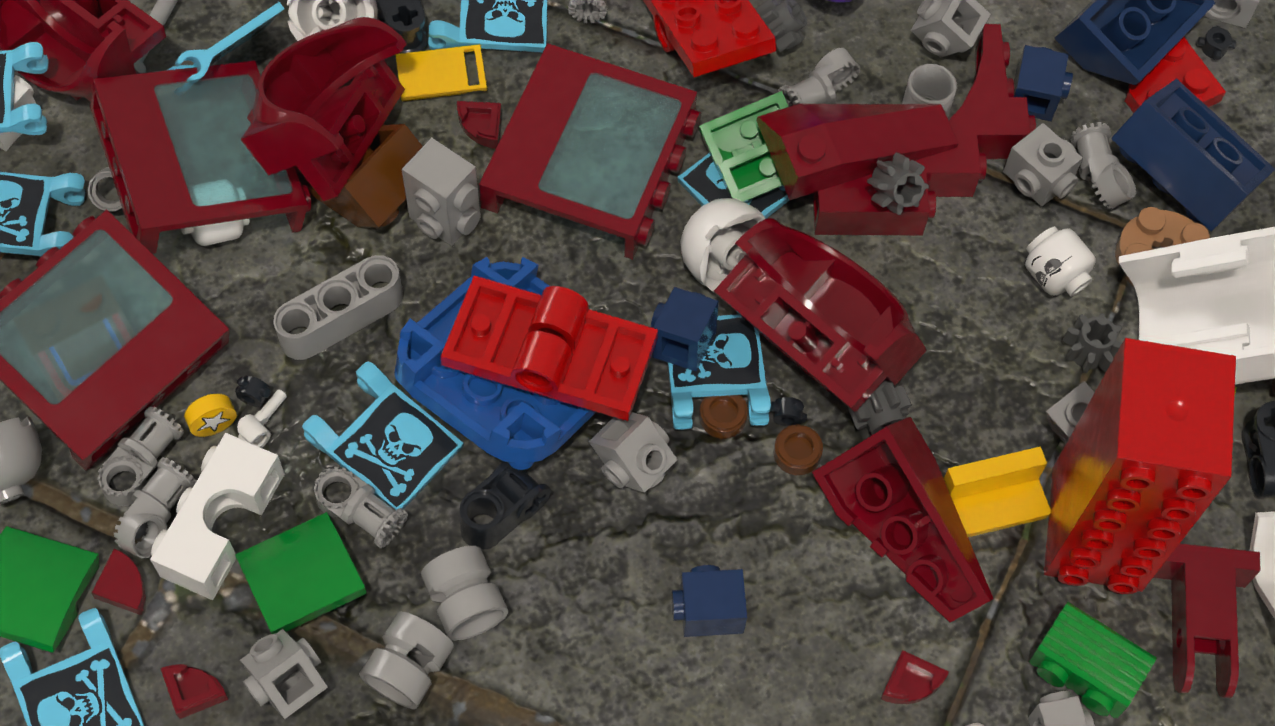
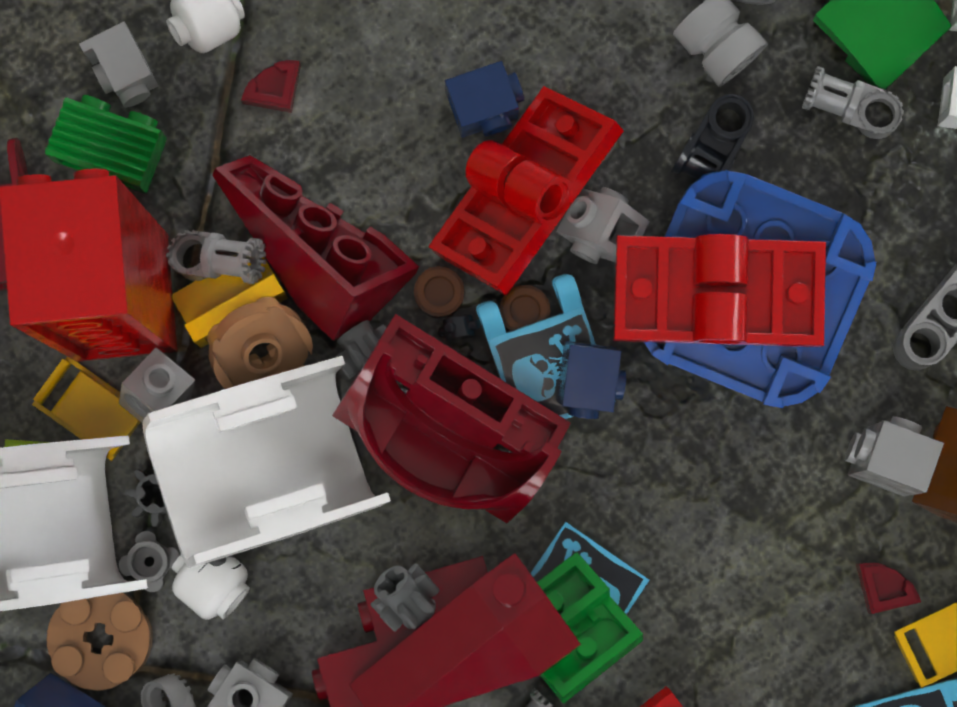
camera: 165 degrees right, 20 degrees up
(390, 444) = (854, 176): flag -> none
(592, 145) = (753, 577): panel -> none
(695, 504) = (524, 188): none -> red plate
(711, 237) = (578, 495): white cylinder -> none
(977, 431) = (256, 324): none -> medium nougat plate
(999, 319) = (257, 463): none -> white piece
(1002, 520) = (218, 256): none -> light grey connector
(1113, 287) = (135, 566): none -> light grey plate

